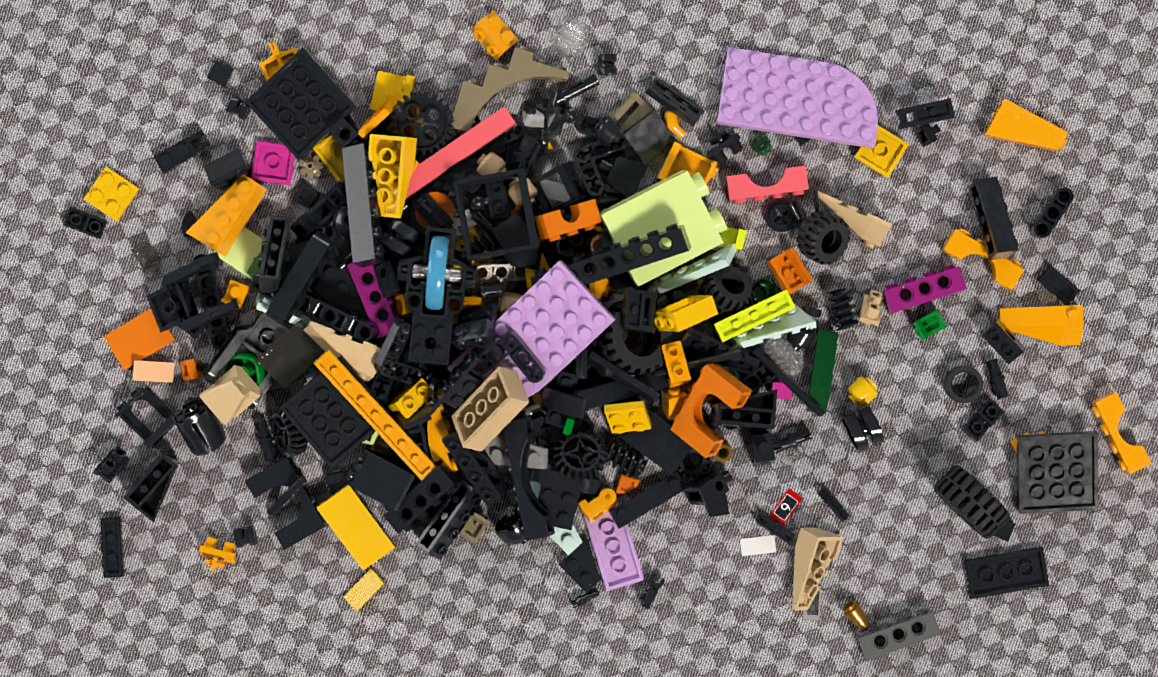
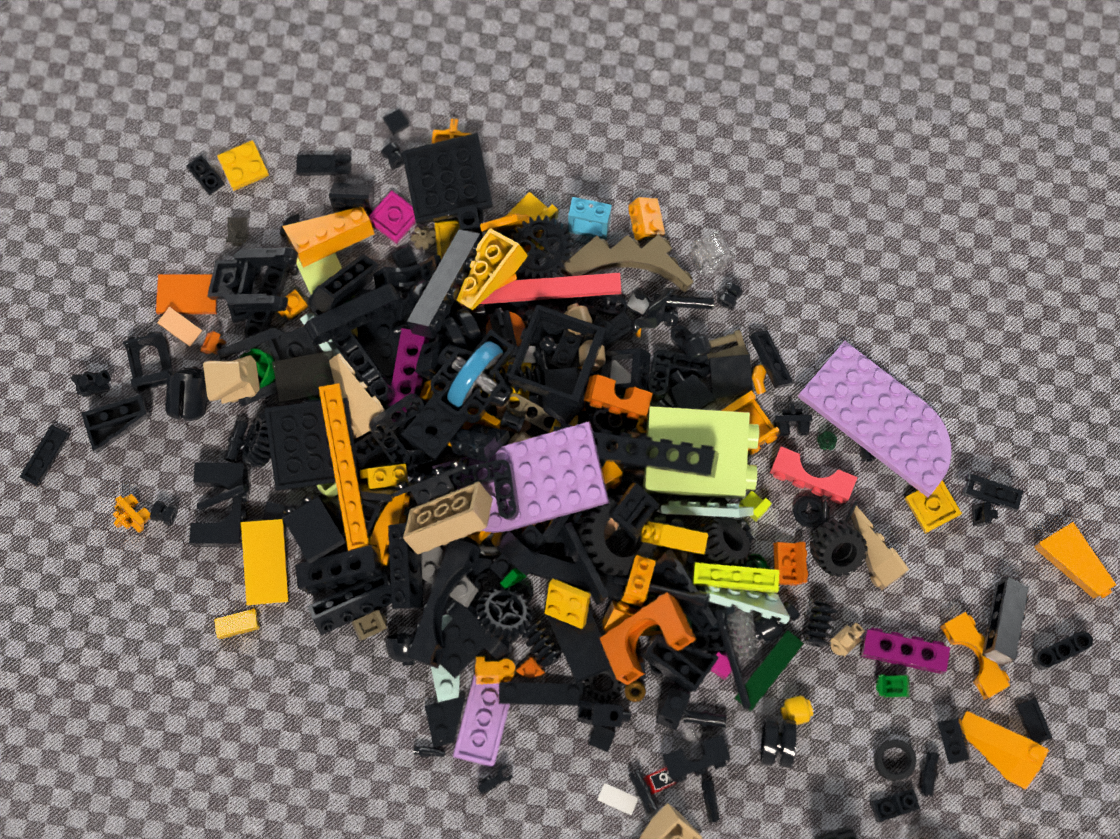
camera: 30 degrees right, 15 degrees down
(448, 70) = (581, 214): none -> medium azure window
(816, 466) = (678, 766): none -> black arch

